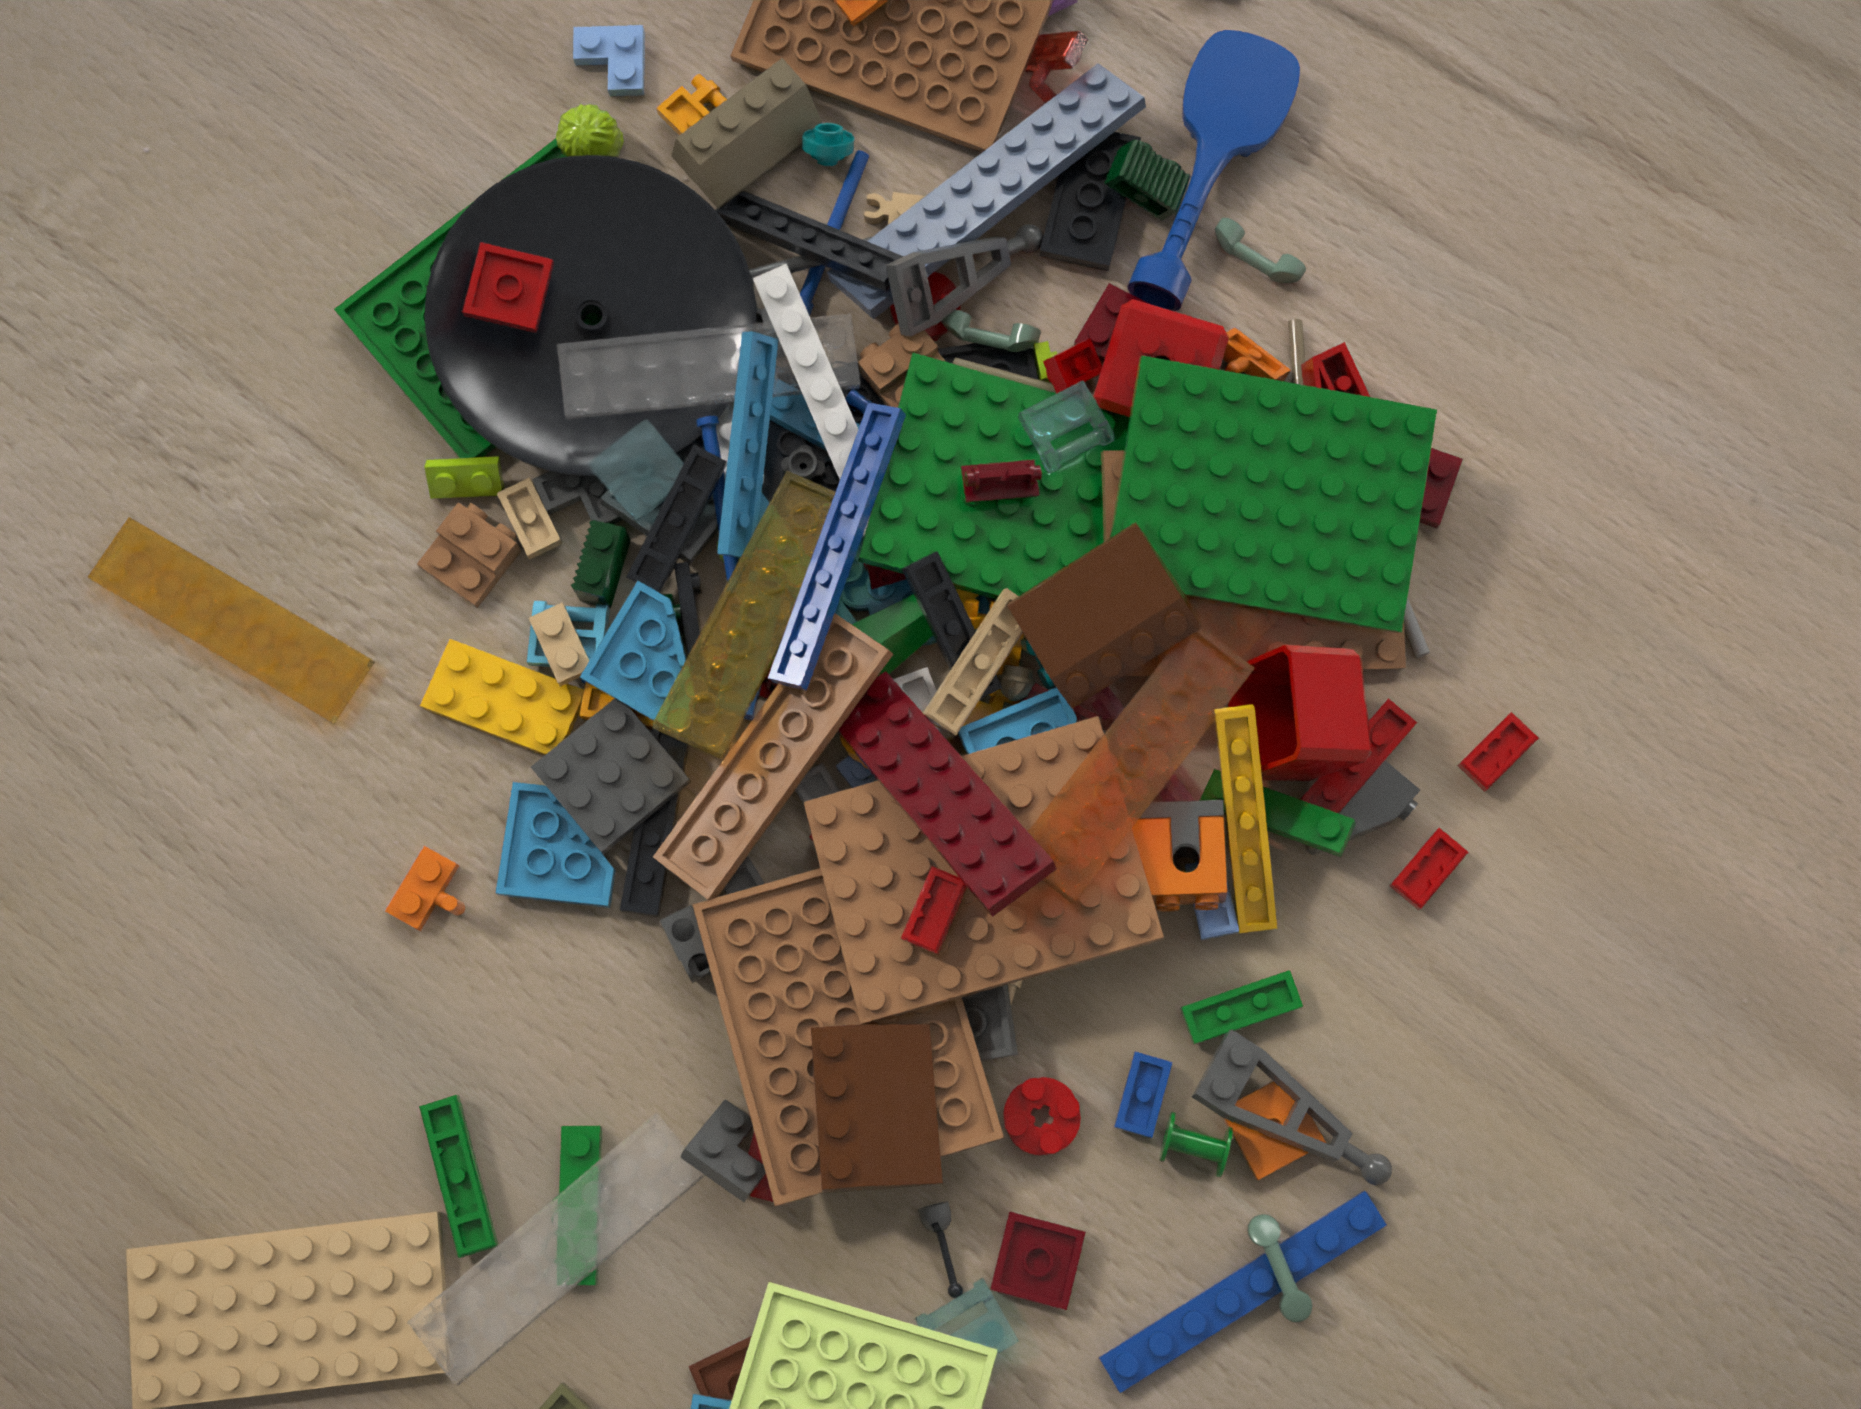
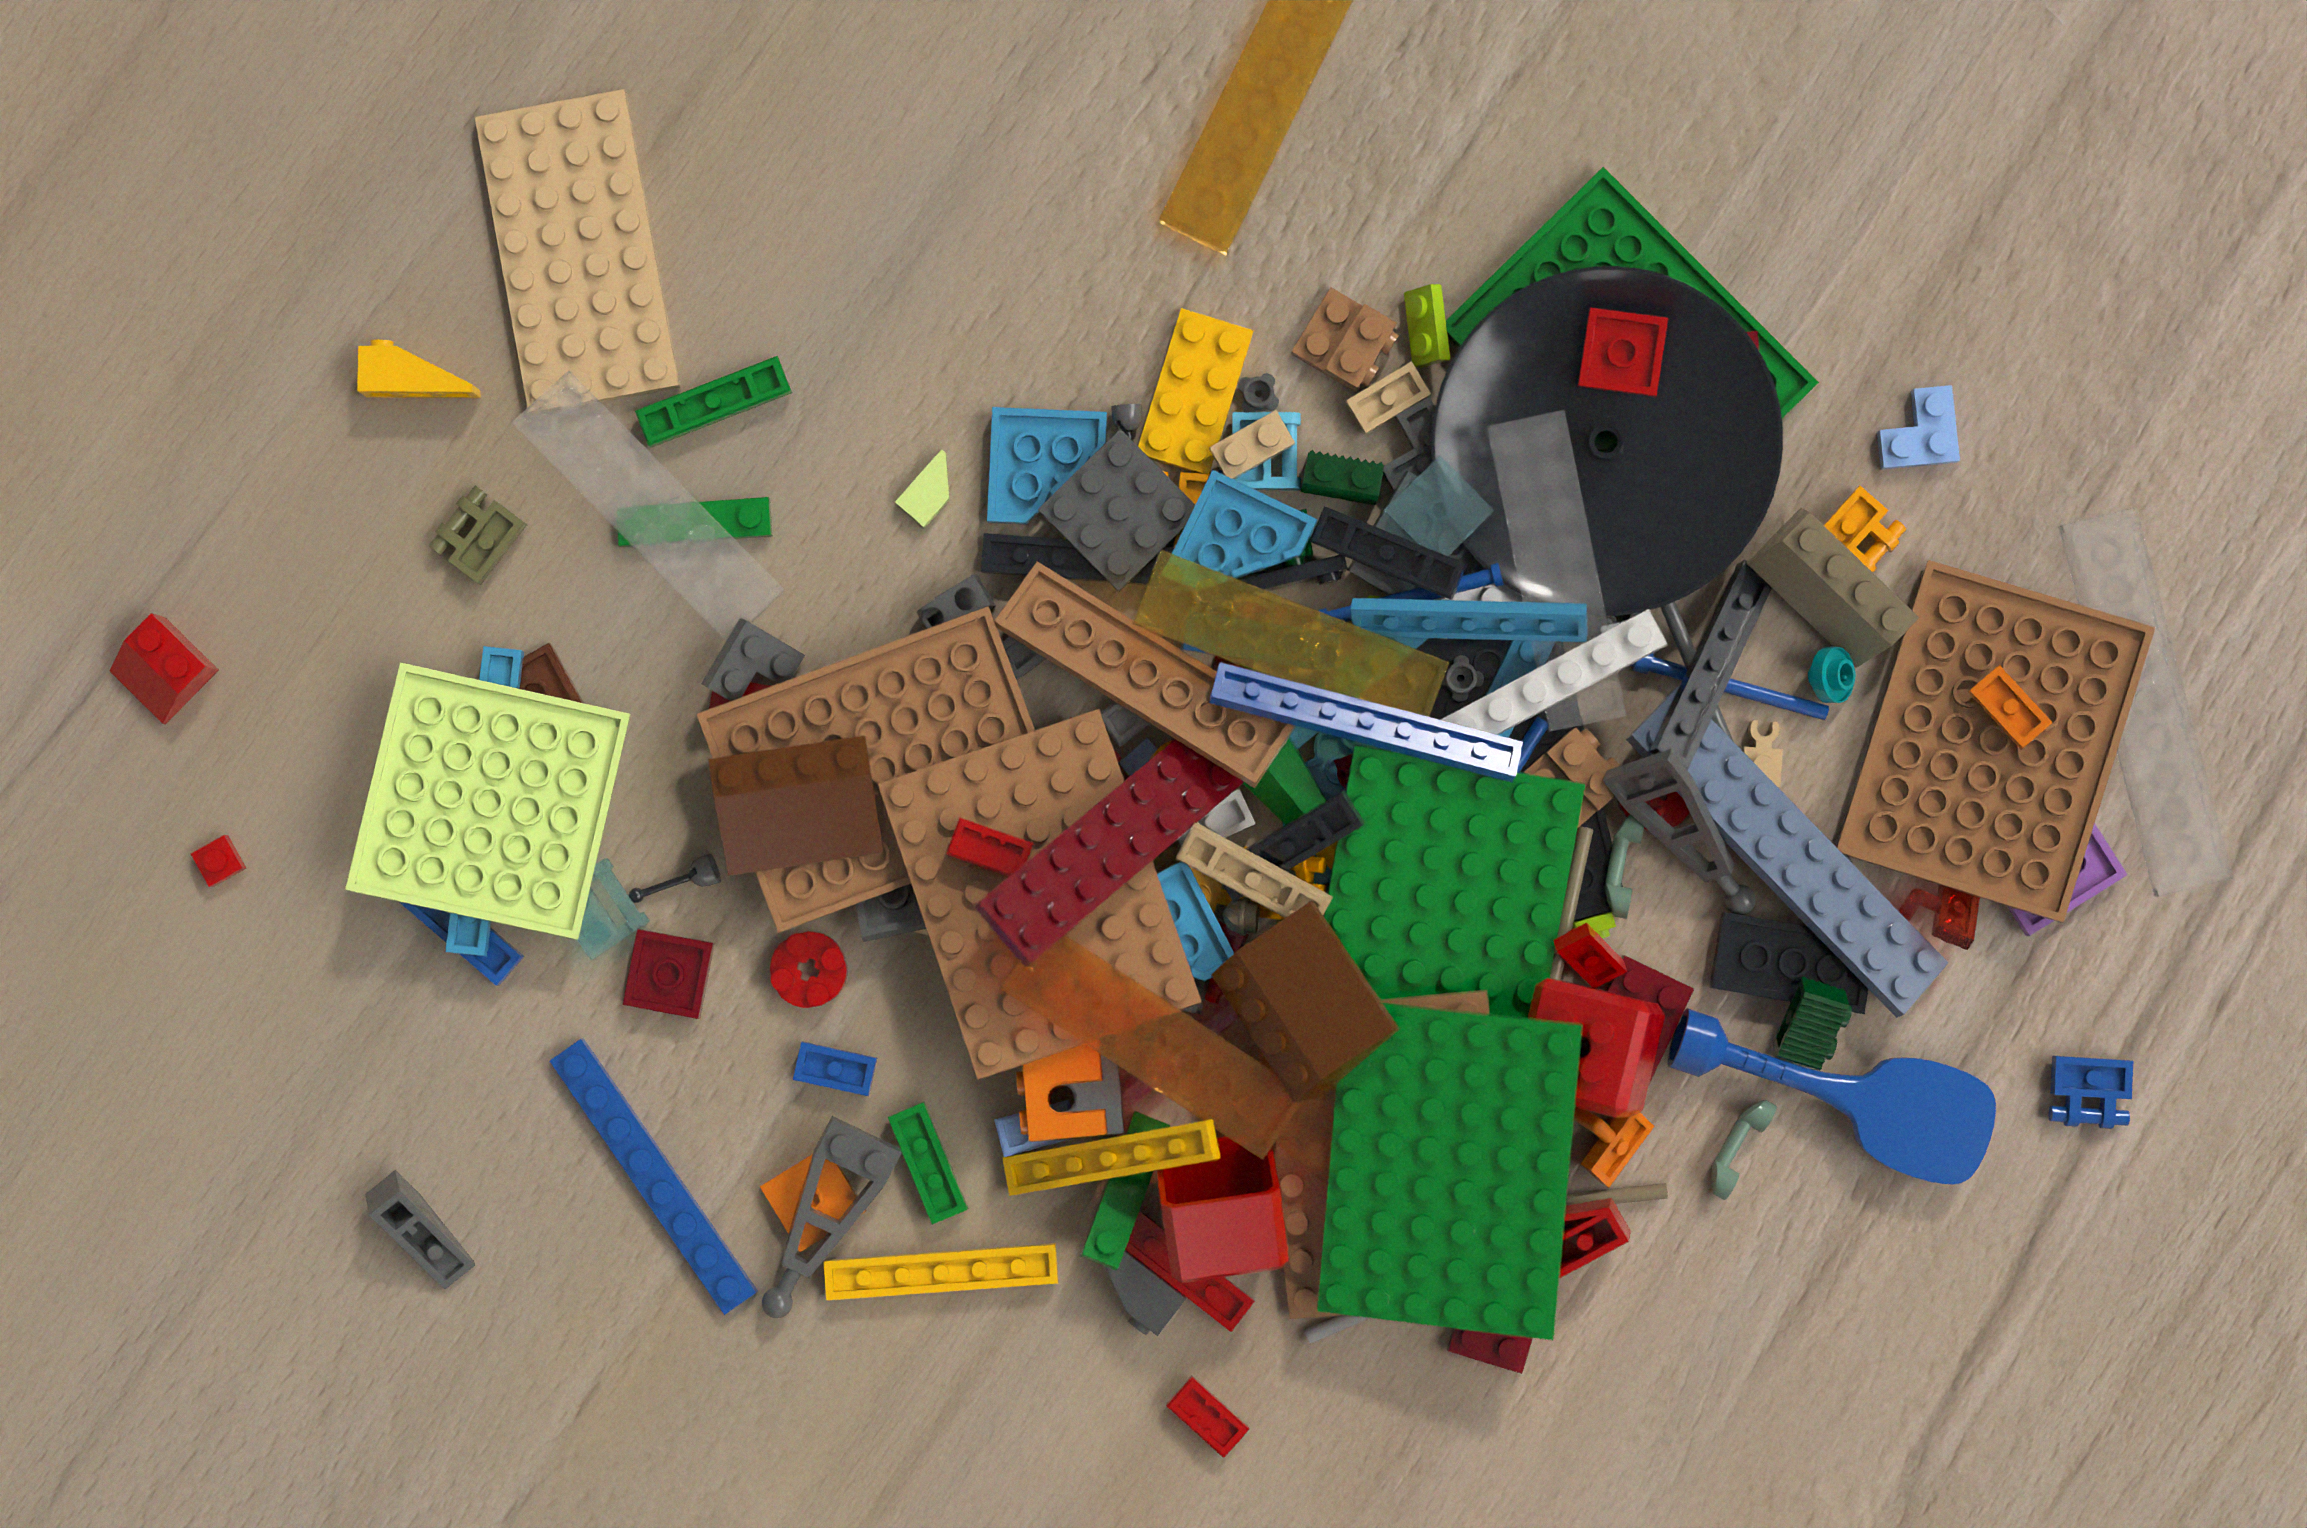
camera: 85 degrees right, 10 degrees up
(425, 889) = (994, 335): orange plate -> none
(504, 631) = (1265, 385): none -> dark grey plate
(519, 764) = (1127, 417): none -> dark grey hinge
(573, 964) = (927, 492): none -> yellowish green tile
(588, 132) = (1820, 416): lime hair -> none
(1001, 480) = (1448, 886): dark red hinge -> none
(1059, 416) = (1525, 943): clear light blue plate -> none
(1196, 1144) = (789, 1123): green piece -> none
(1294, 1303) = (707, 1194): sand green bar -> none
(1350, 1002) = (941, 1271): none -> yellow plate
(1428, 869) = (1081, 1348): red plate -> none

